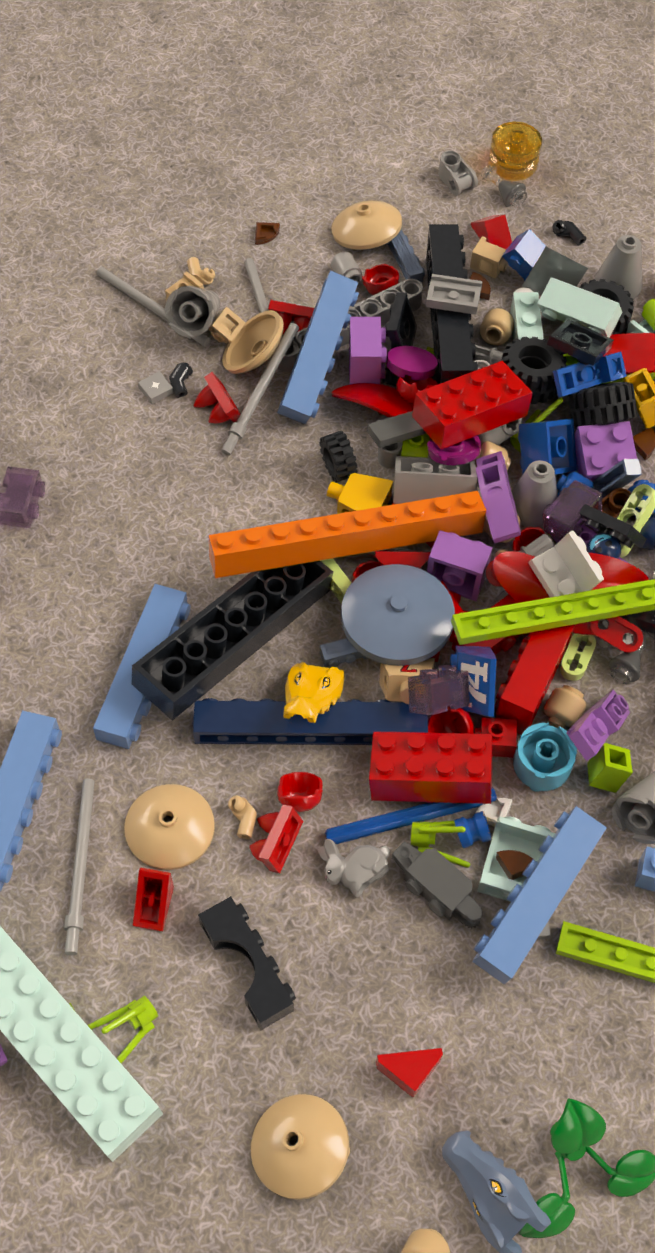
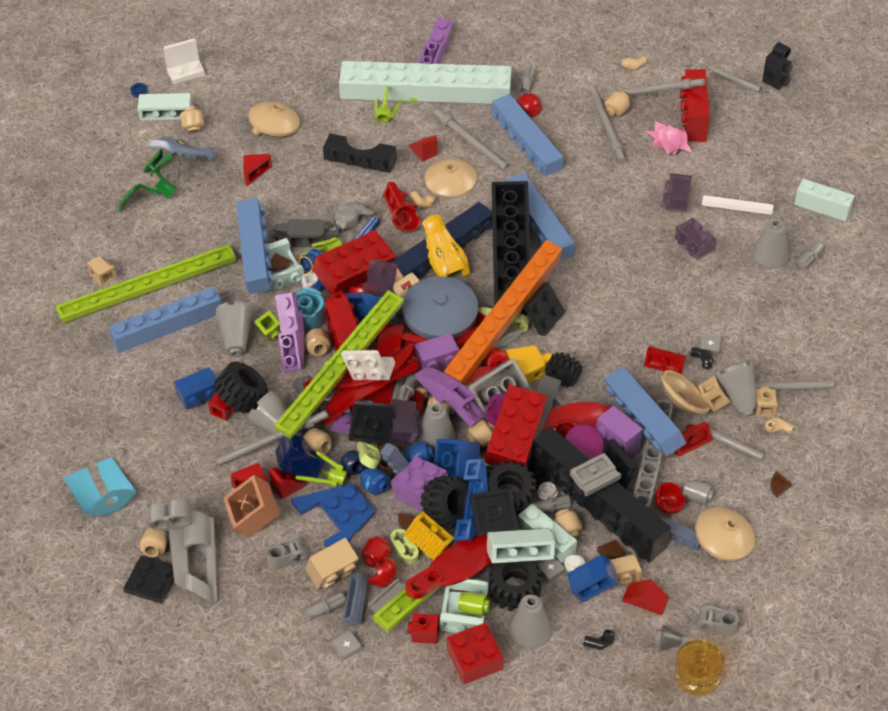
camera: 140 degrees right, 10 degrees down
(238, 428) = (637, 354): light grey bar -> none
(556, 266) = (560, 574): flat silver piece -> none

